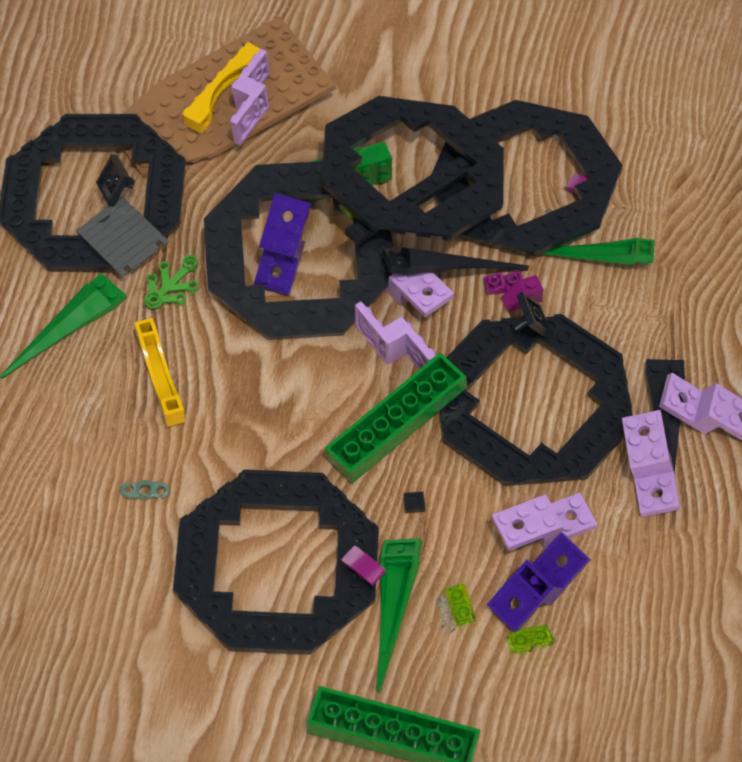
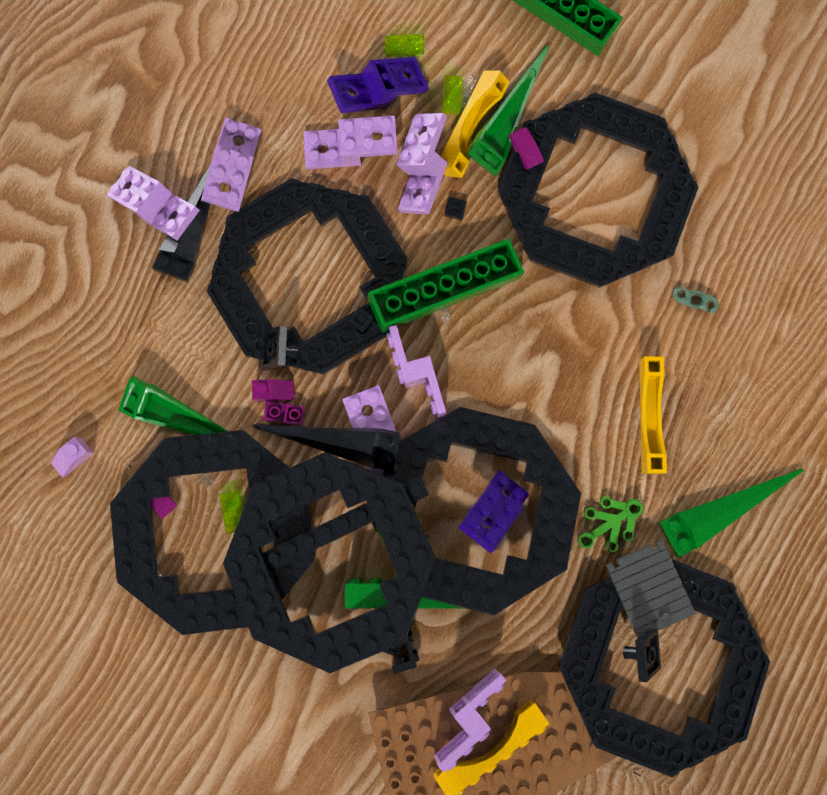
camera: 160 degrees left, 25 degrees up
(315, 135) = (402, 663): none -> black bracket
(423, 616) = (486, 93): none -> yellow arch
(463, 516) = (422, 163): none -> lavender bracket
(515, 199) = (232, 509): none -> clear neon green slope
(676, 197) = (71, 456): none -> lavender slope

